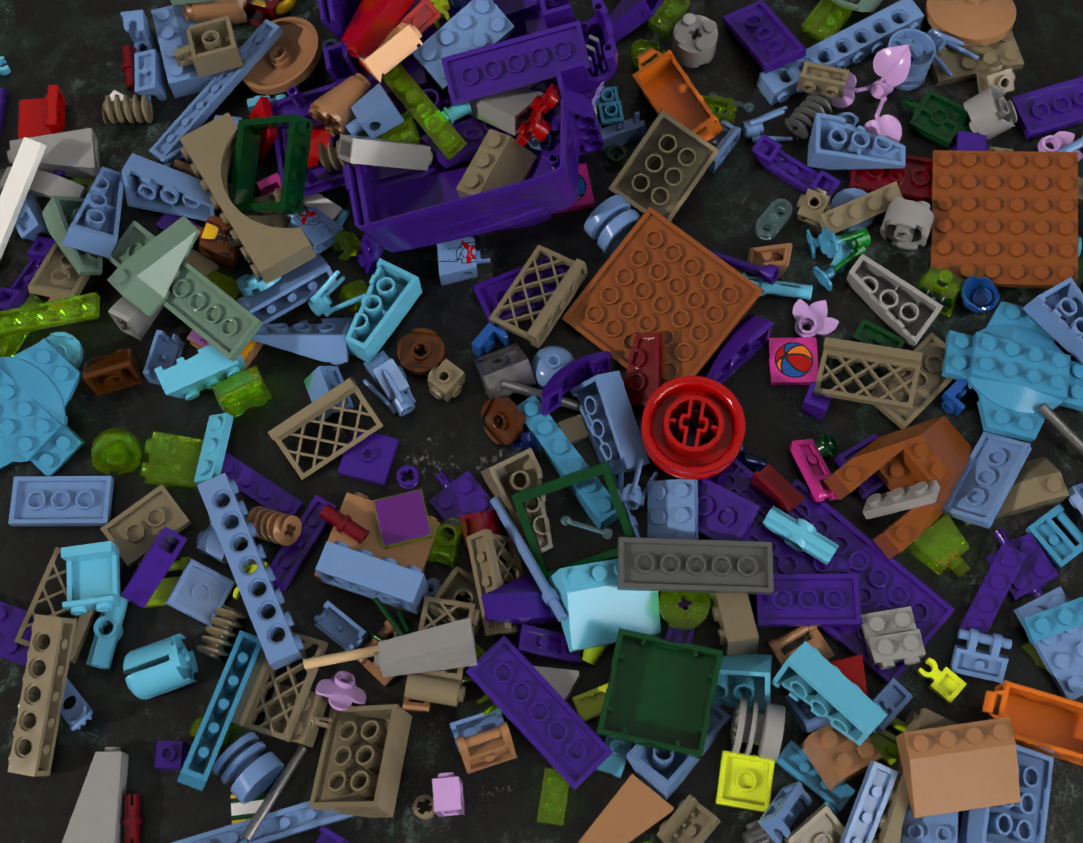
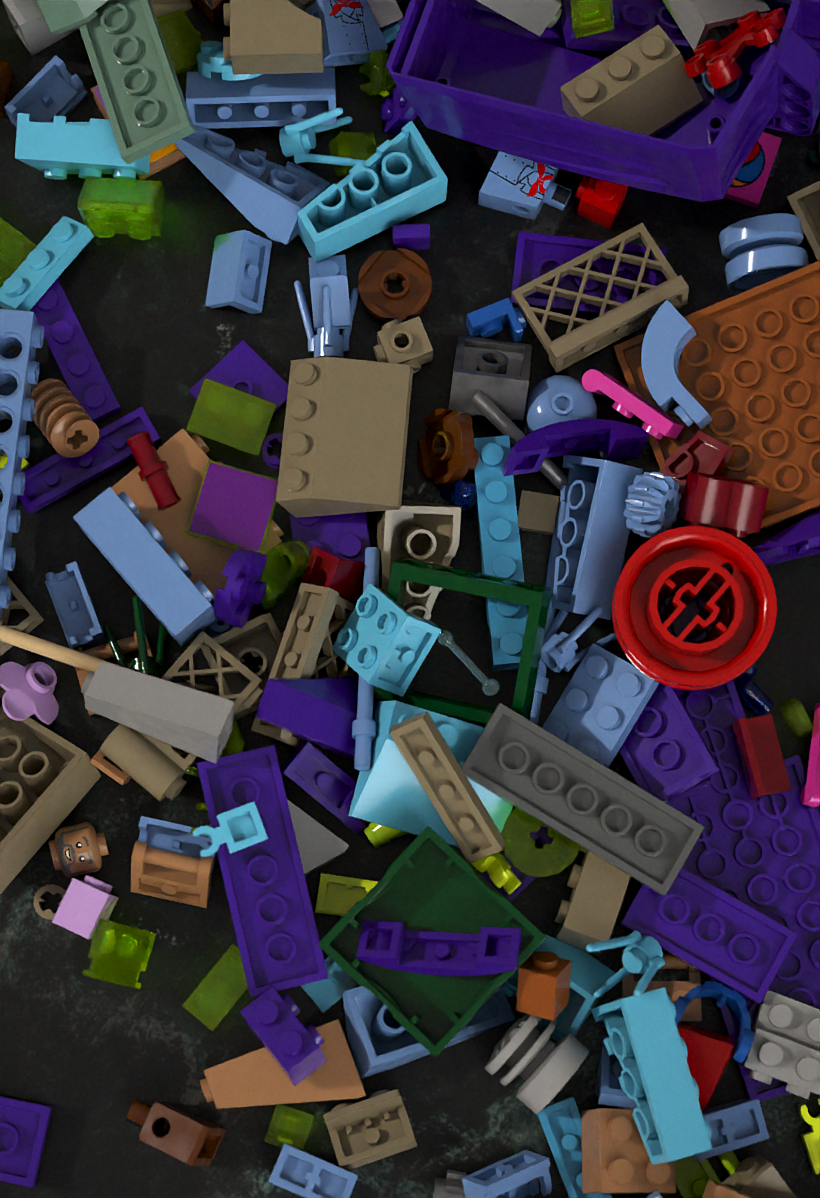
camera: 25 degrees right, 10 degrees up
(315, 409) = (204, 289): dark tan fence -> none
(370, 471) = (231, 417): none -> clear neon green plate
(415, 320) = (411, 236): none -> dark purple tile
(423, 766) = (78, 849): none -> medium nougat head
(433, 558) = (242, 587): none -> dark purple plate
(442, 445) = (344, 436): none -> dark tan slope
(482, 810) = (119, 953): none -> clear neon green plate
(507, 244) = (600, 200): none -> red brick
(511, 694) = (237, 828): none -> medium azure plate
(532, 541) = (385, 641): none -> medium azure bracket
(588, 297) = (660, 358): none -> medium blue arch
(588, 342) = (630, 403): none -> dark pink plate
(607, 799) = (283, 1035): none -> dark purple brick
(617, 600) = (447, 787): none -> dark tan plate
(635, 385) = (652, 504): none -> medium blue gear
(664, 632) = (498, 871): none -> neon yellow plate
(669, 697) = (439, 953): none -> dark purple slope
(673, 363) = (723, 503): none -> dark red brick
(737, 682) = (543, 985): none -> dark orange brick
(745, 781) = (480, 1114): neon yellow plate -> none
(780, 635) = (639, 957): none -> medium azure plant
(783, 460) = (796, 718): none -> clear neon green tile
(800, 535) = (753, 836): medium azure piece -> none
(847, 632) = (734, 1001): none -> blue piece

